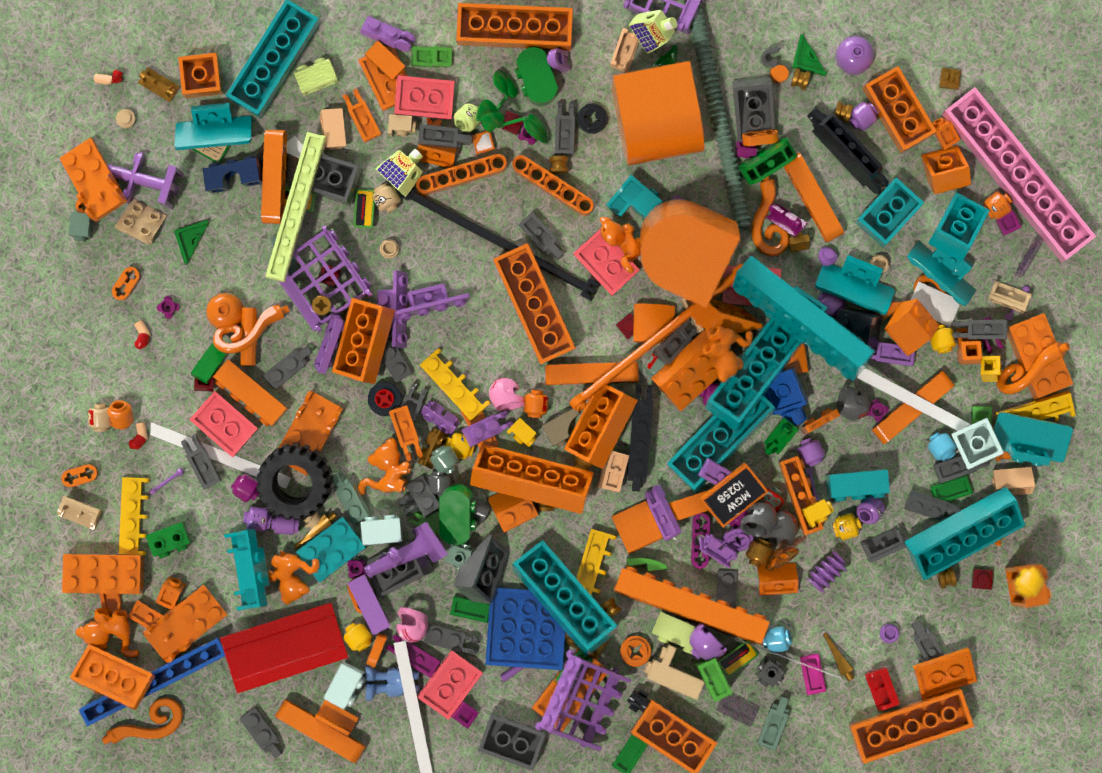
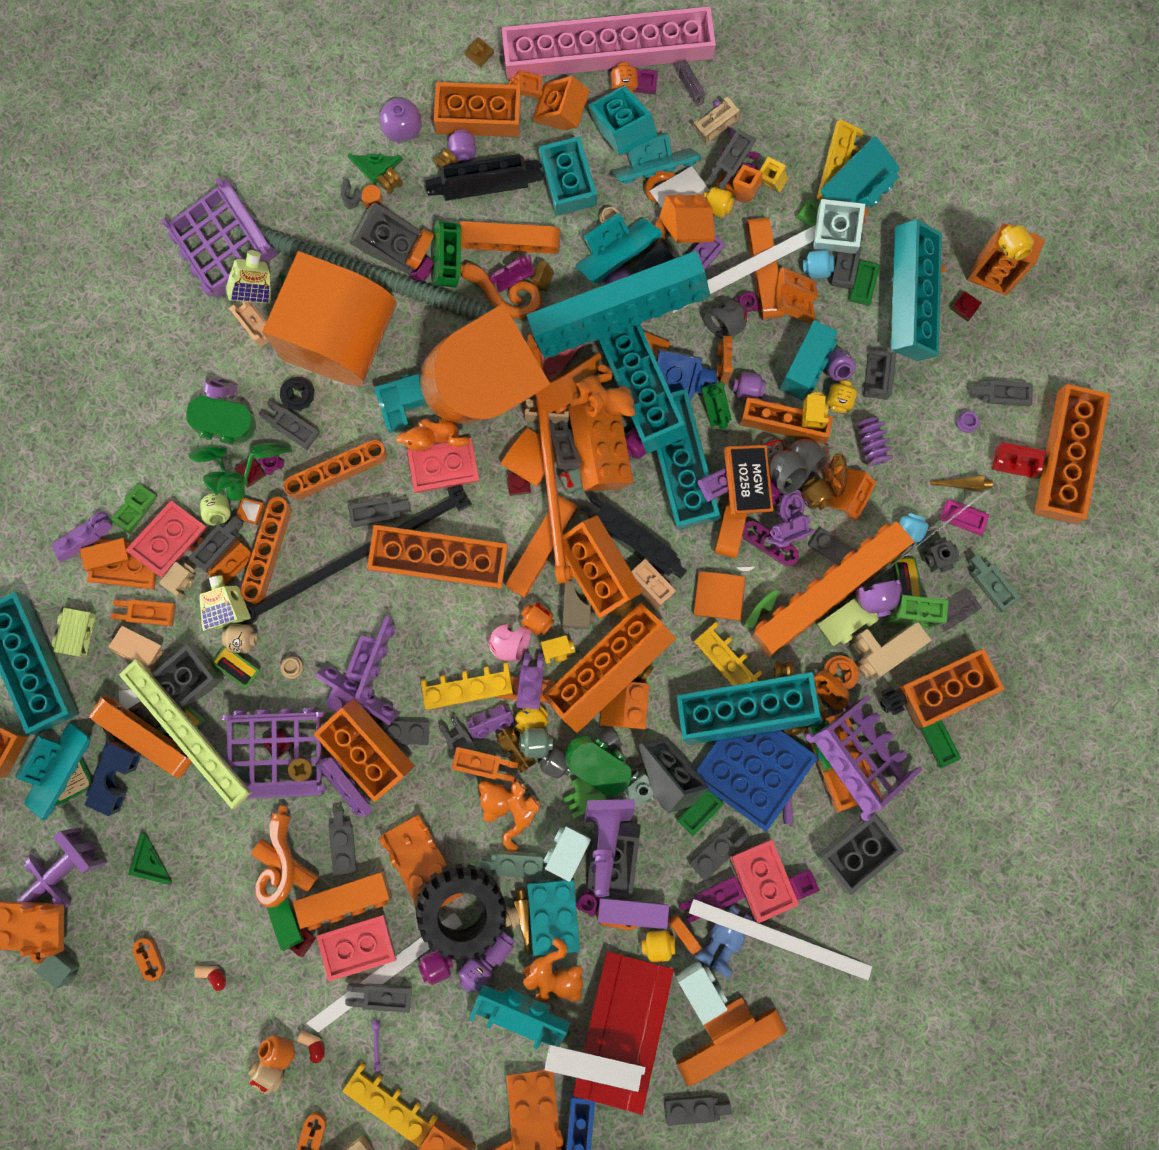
camera: 60 degrees left, 5 degrees down
(140, 222) = (96, 903): tan hinge -> none
(162, 307) = (195, 926): magenta plate -> none
(169, 540) = (437, 1083): green brick -> none
(170, 592) = (492, 1116): orange bracket -> none
(224, 310) = (242, 873): orange cylinder -> none
(247, 640) = (594, 1068): none -> white fence
(384, 398) = (429, 766): black wheel -> none
(413, 625) = (682, 881): bright pink helmet -> none
(423, 497) = (558, 789): dark grey hinge -> none
(514, 26) = (156, 410): orange brick -> none
(558, 164) = (319, 451): pearl gold wheel -> none
(618, 651) = (831, 690): none -> orange beam
(662, 513) = (721, 562): medium lavender hinge -> none
(827, 256) = (572, 258): medium lavender plate -> none
(905, 444) = (796, 295): none -> orange slope
(930, 506) = (869, 309): dark grey hinge -> none
(945, 673) = (1038, 392): orange tile -> none
(946, 578) = (947, 336): pearl gold wheel -> none
(1017, 480) = (894, 212): light nougat hinge -> none
(1020, 381) = (796, 112): orange plant -> none
(1028, 342) = (789, 127): orange brick -> none

